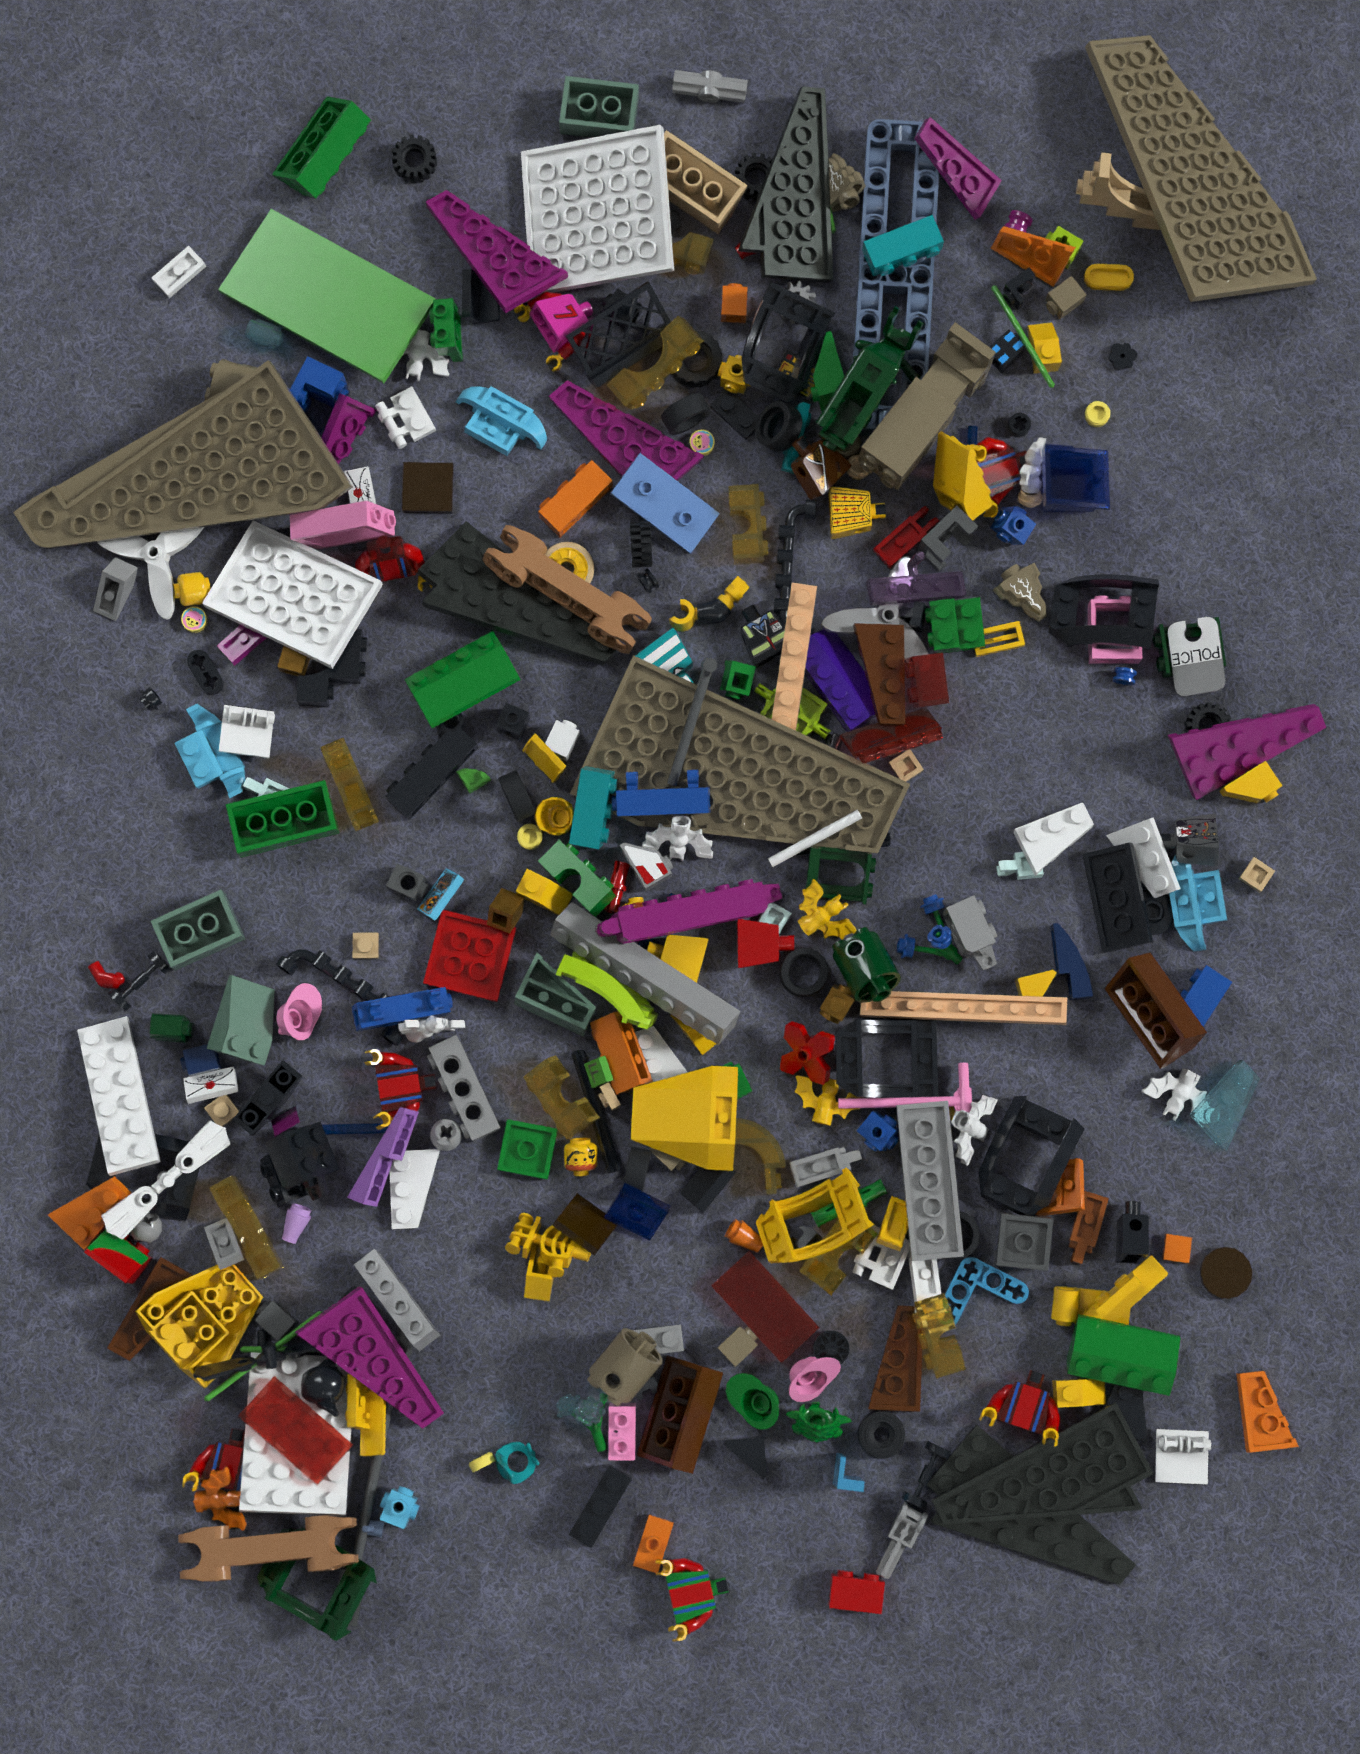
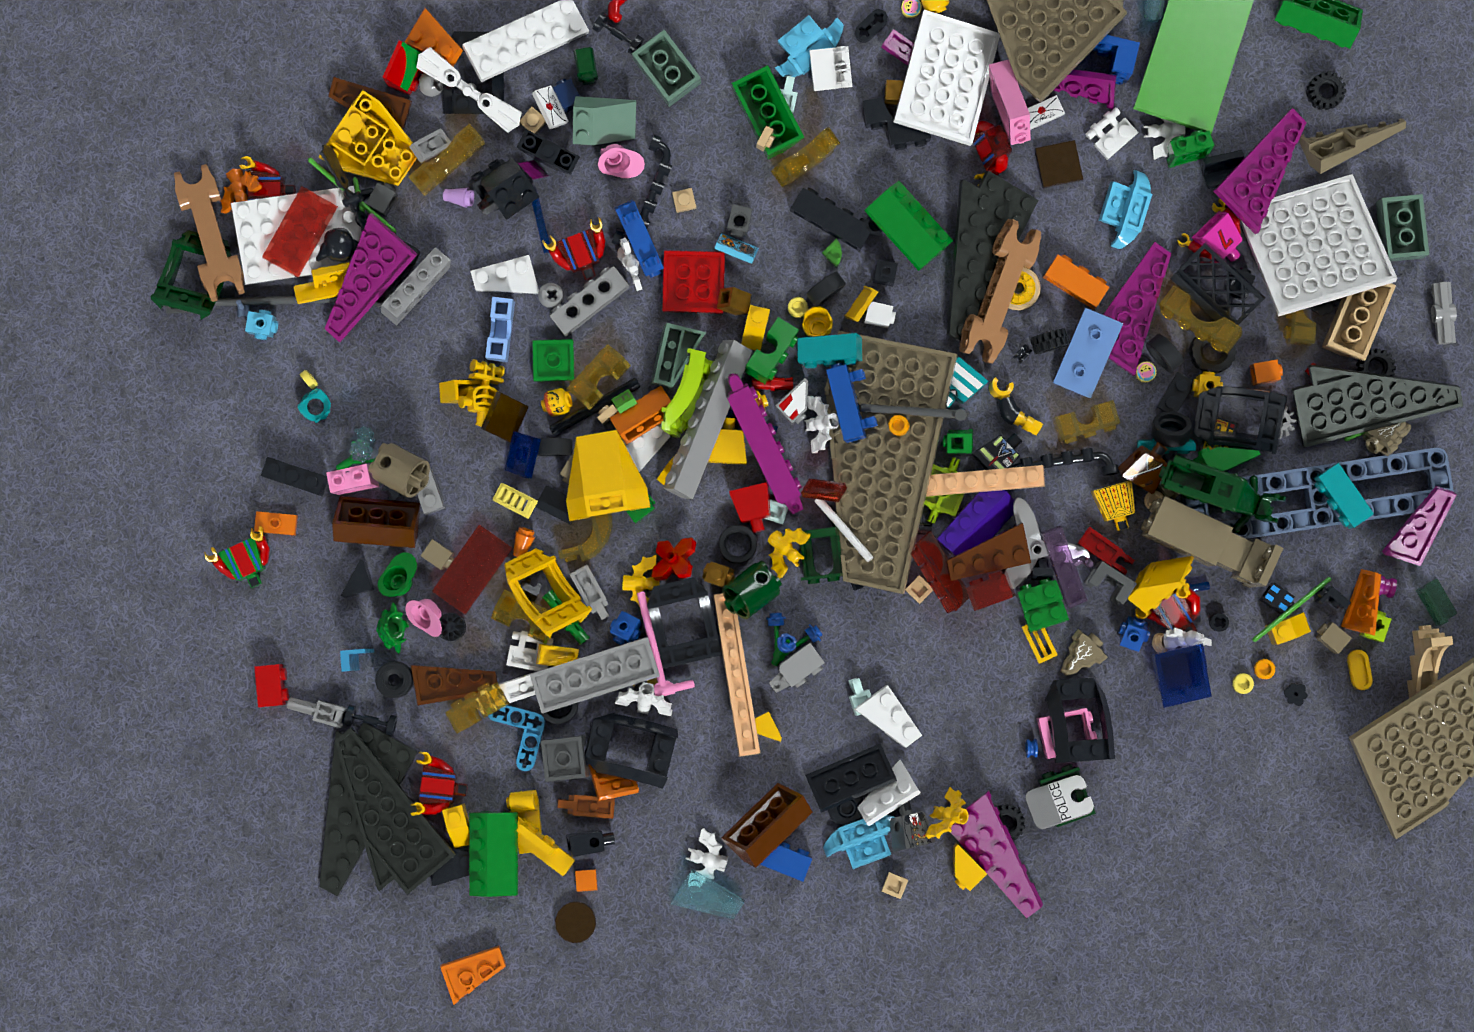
camera: 80 degrees right, 5 degrees up
(317, 825) = (765, 139): none -> tan plate
(391, 1146) = (531, 255): medium lavender slope -> none
(474, 1206) = (501, 327): none -> light blue arch
(485, 167) = (1332, 149): none -> dark tan wedge
(681, 1245) = (504, 495): none -> light yellow slope
(704, 743) = (898, 425): none -> light orange tile
(762, 852) = (823, 490): none -> clear red tile
(1048, 172) = (1436, 602): none -> clear green panel
(1070, 964) = (790, 751): dark blue slope -> none
(1085, 385) = (1264, 669): none -> light orange tile
(1182, 1456) = (427, 915): white hinge -> none
(1186, 787) = (949, 815): none -> yellow animal

